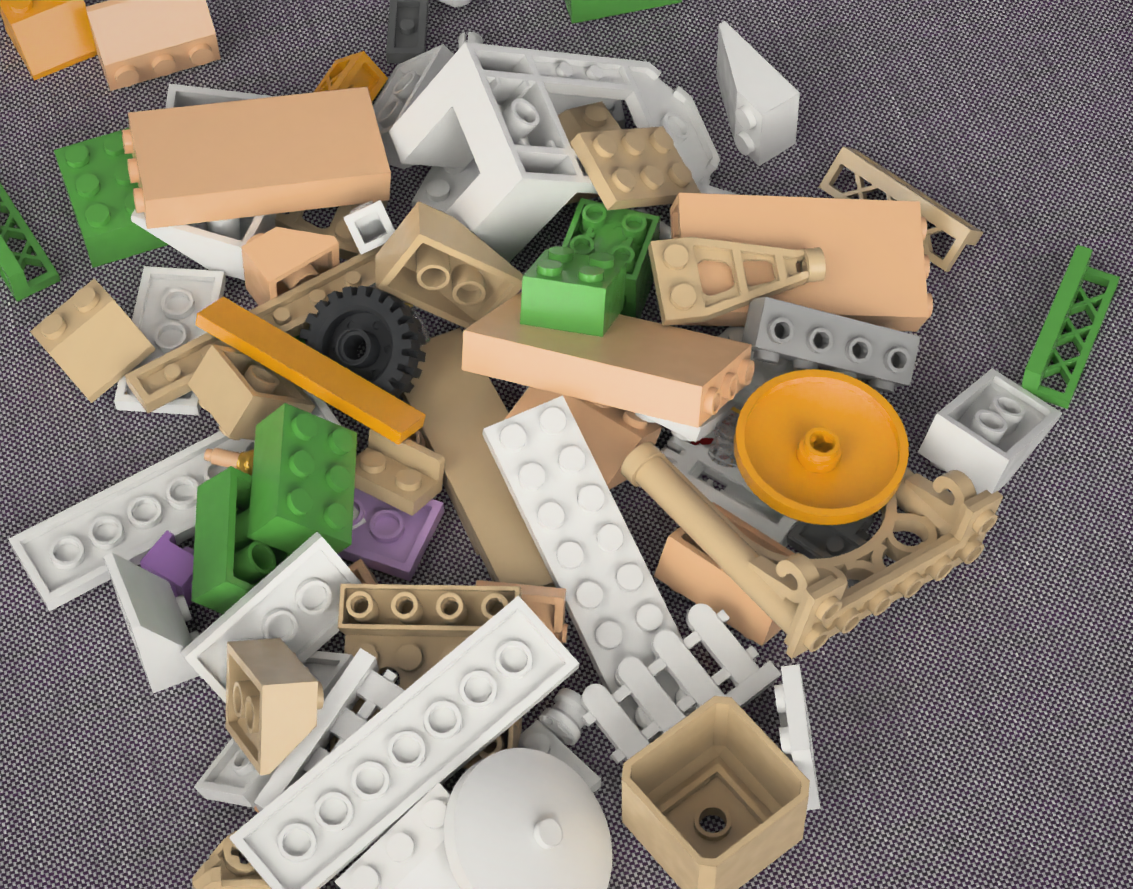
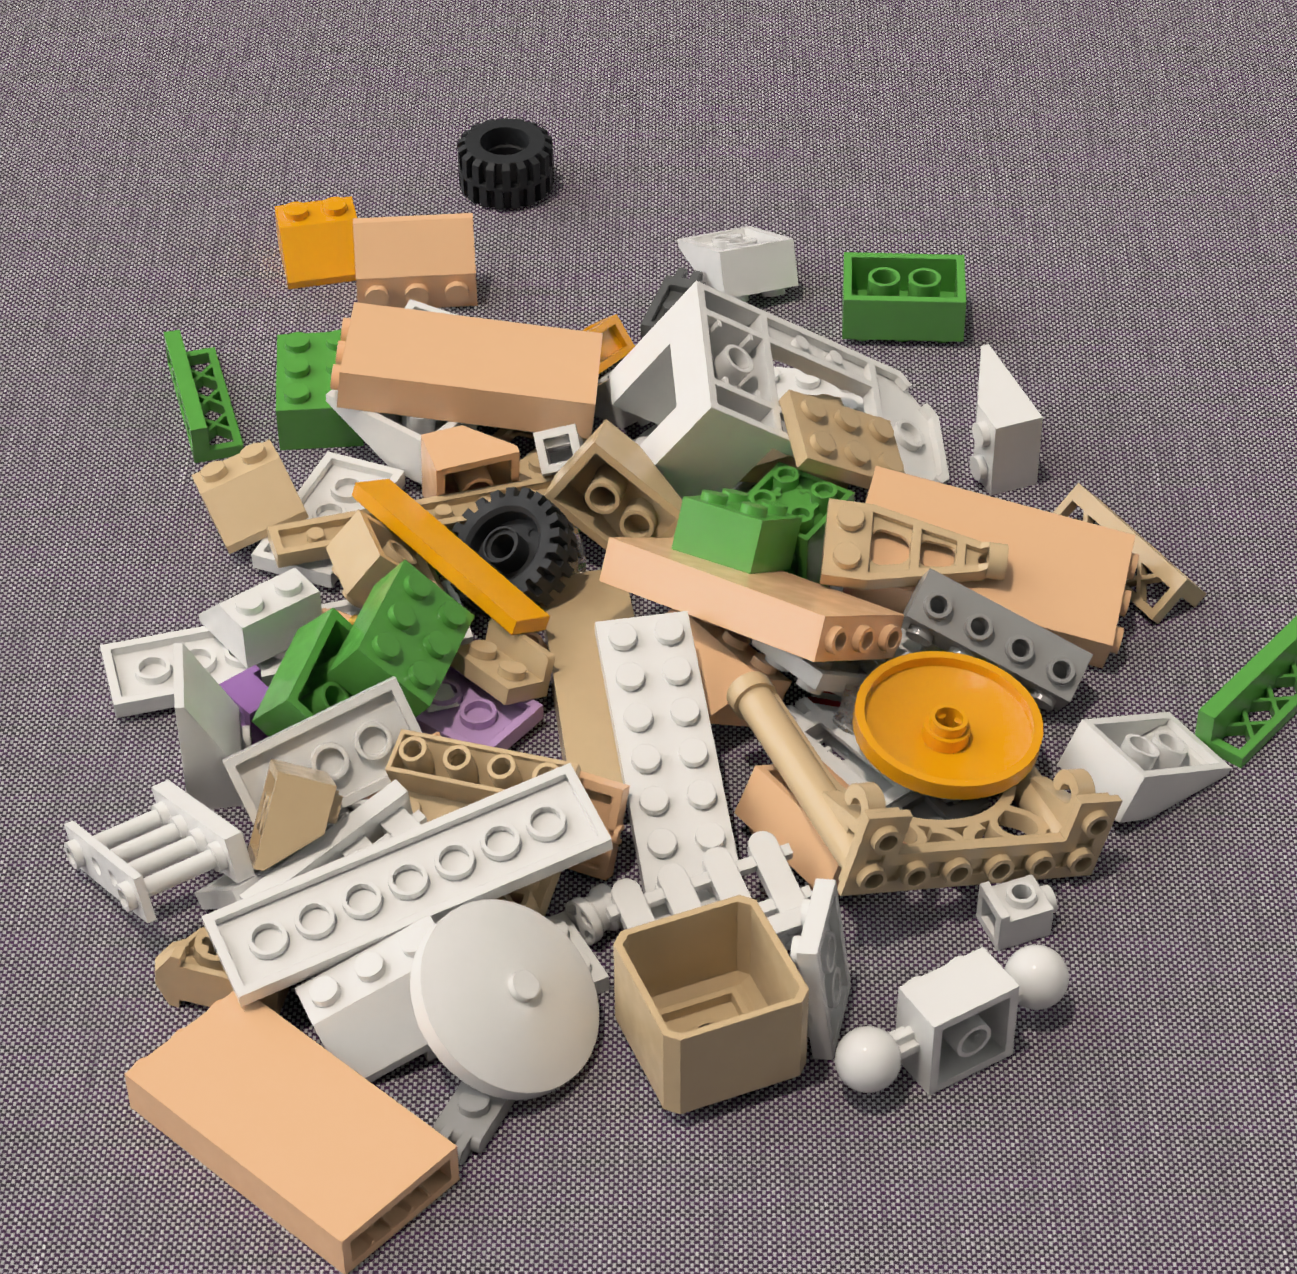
camera: 15 degrees right, 15 degrees down
(156, 473) = (264, 617): none -> white slope
(168, 725) = (172, 819): none -> white fence
(921, 753) = (953, 1020): none -> white brick
(928, 627) = (1015, 911): none -> white brick

